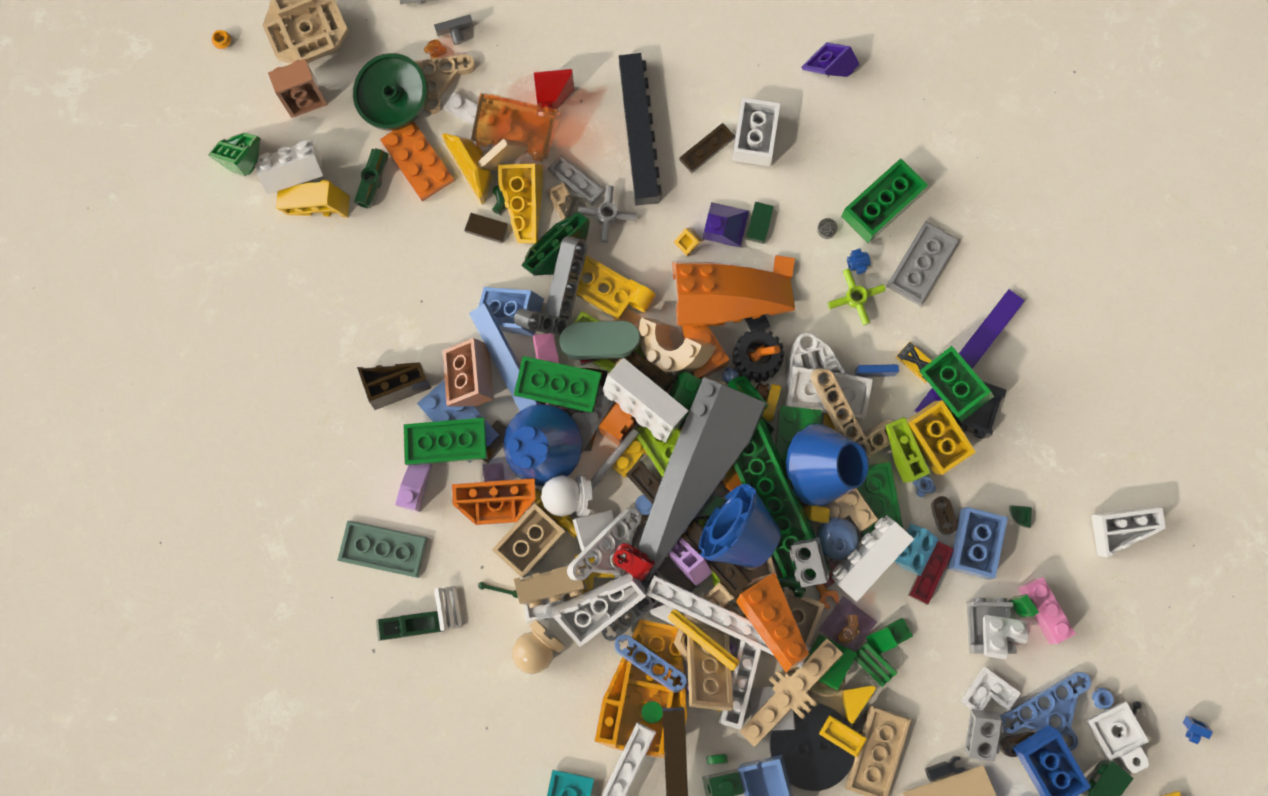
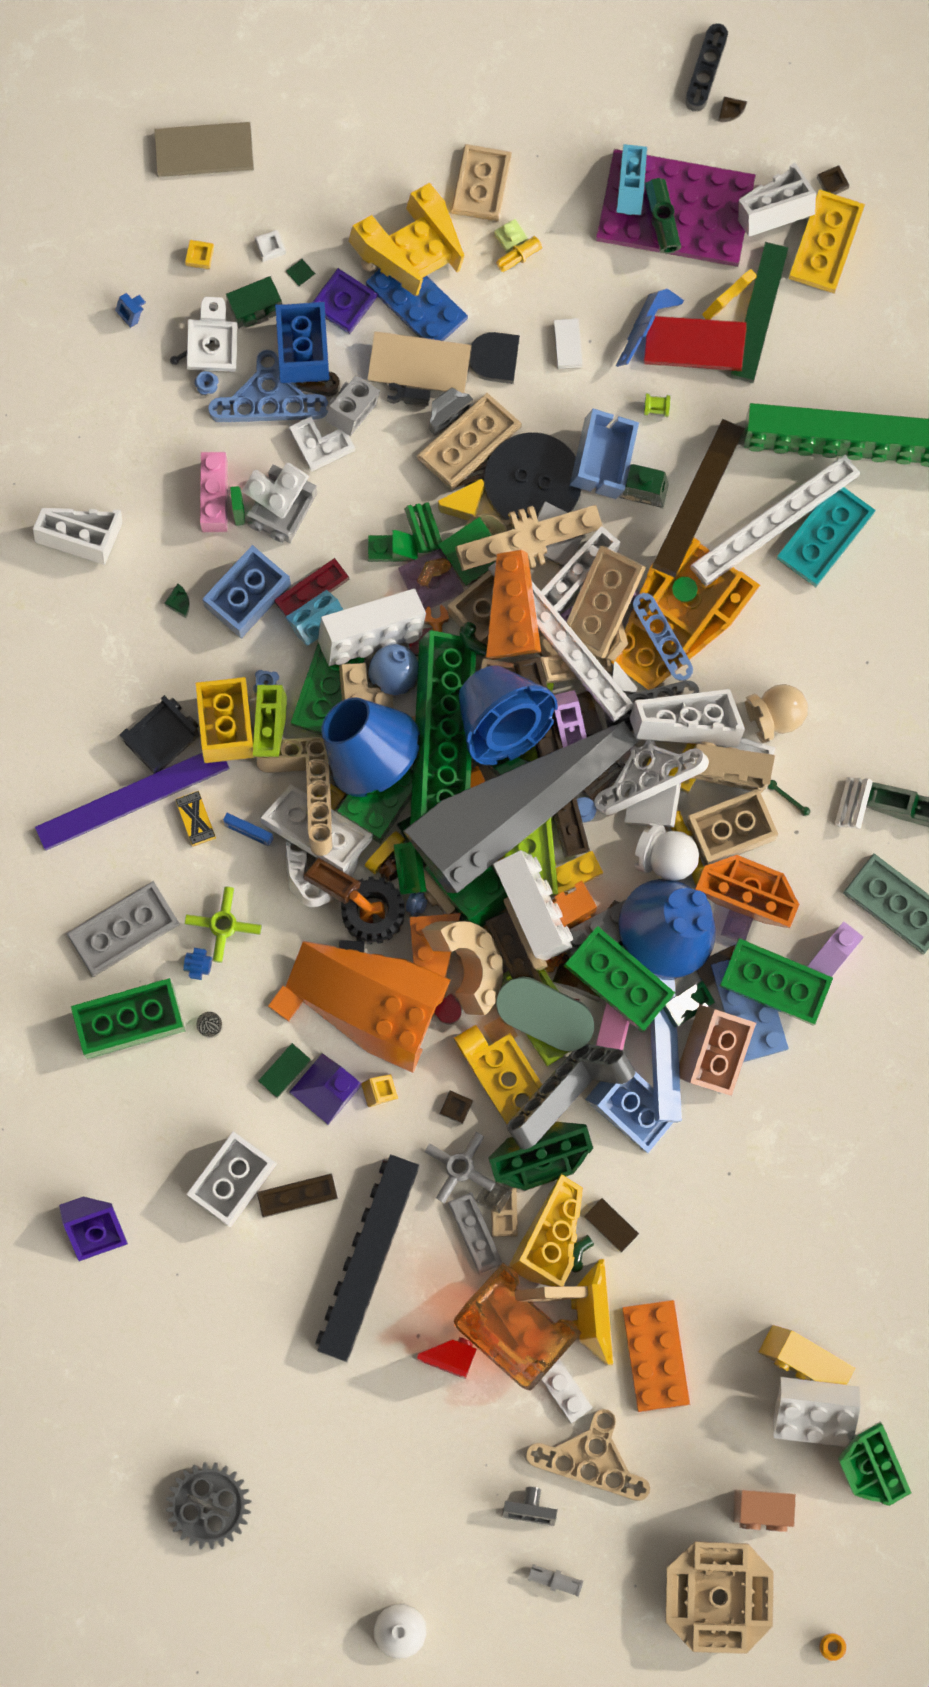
camera: 155 degrees left, 0 degrees up
(368, 189) = (734, 1342): dark green piece -> none
(390, 91) = (650, 1454): dark green dish -> none
(393, 383) = (807, 1082): dark brown wedge -> none
(435, 44) = (560, 1490): clear orange plate -> none
(502, 400) = (686, 1004): none -> tile
(613, 457) = (596, 874): light grey bar -> none
(630, 254) = (456, 1107): none -> dark brown tile
(634, 562) = (629, 744): red piece -> none
(668, 315) = (449, 1010): none -> dark red tile
(703, 639) = (595, 630): yellow axle -> none
(716, 759) = (639, 514): green tile -> none
(798, 356) = (331, 880): none -> reddish brown tile
(815, 562) = (439, 647): light grey brick -> none
(817, 513) = (403, 702): yellow slope -> none
(843, 736) = (497, 472): yellow tile -> none
(908, 770) = (448, 409): none -> dark grey slope
(948, 513) = (257, 640): dark brown beam -> none
(956, 383) = (174, 762): green brick -> none

